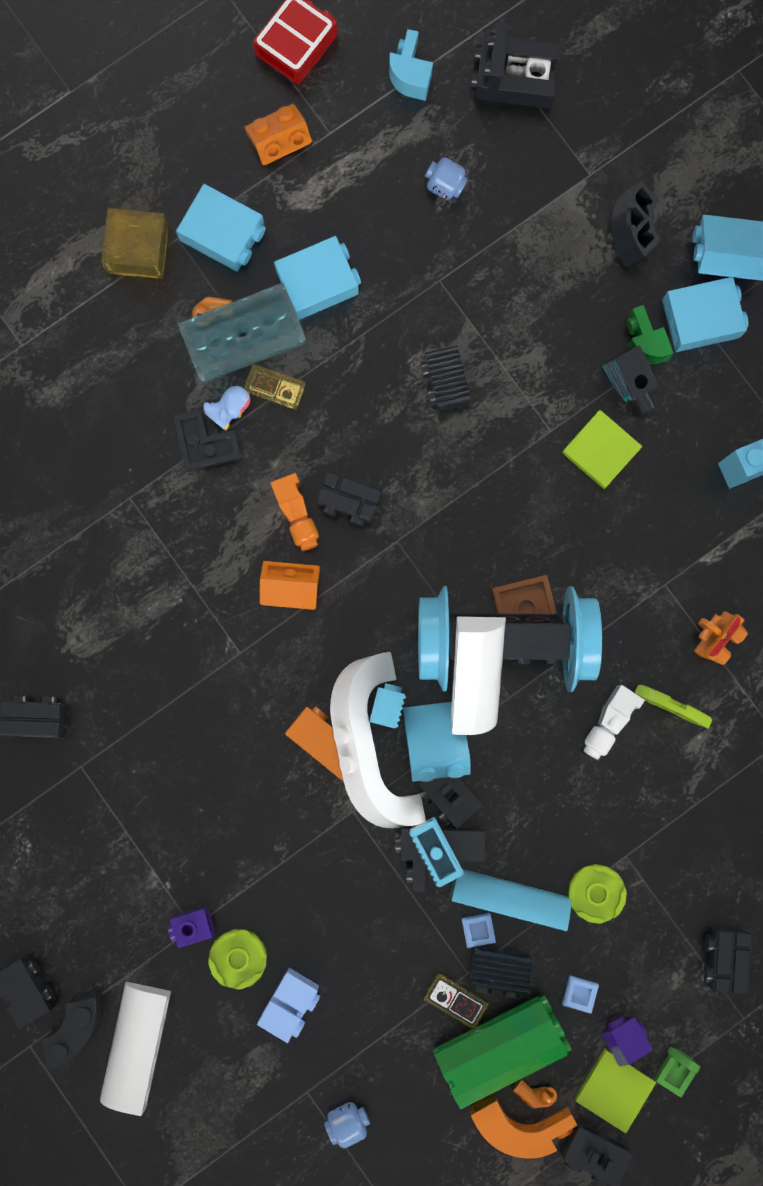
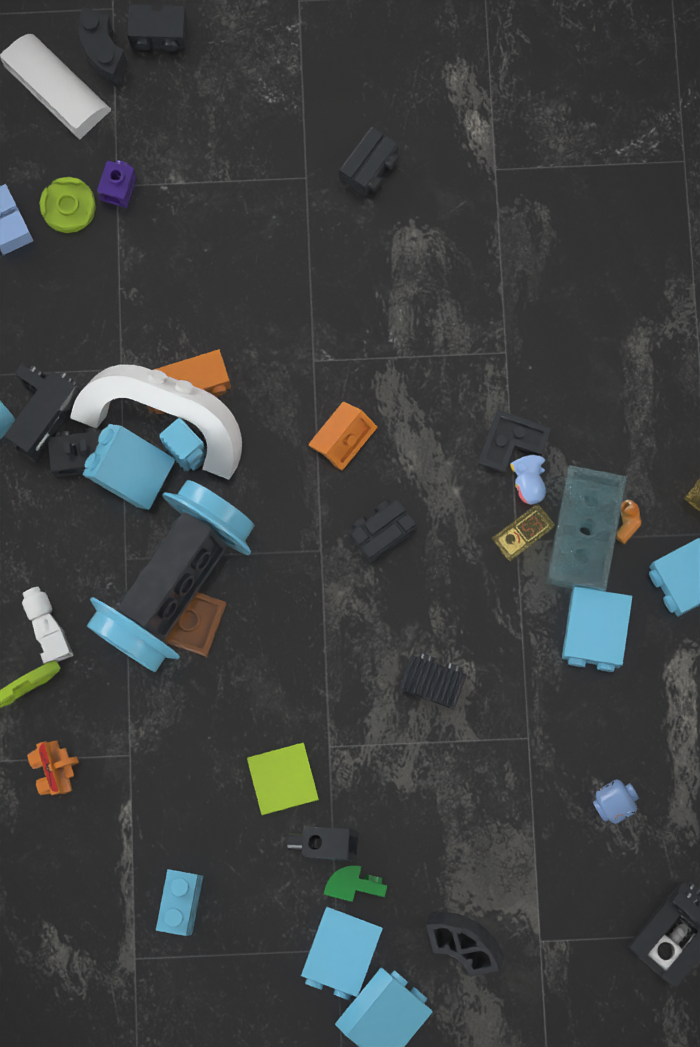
camera: 130 degrees right, 5 degrees down
(293, 507) = (406, 479): orange piece -> none
(436, 852) = (37, 396): medium azure brick -> none
(477, 674) = (155, 523): white brick -> none

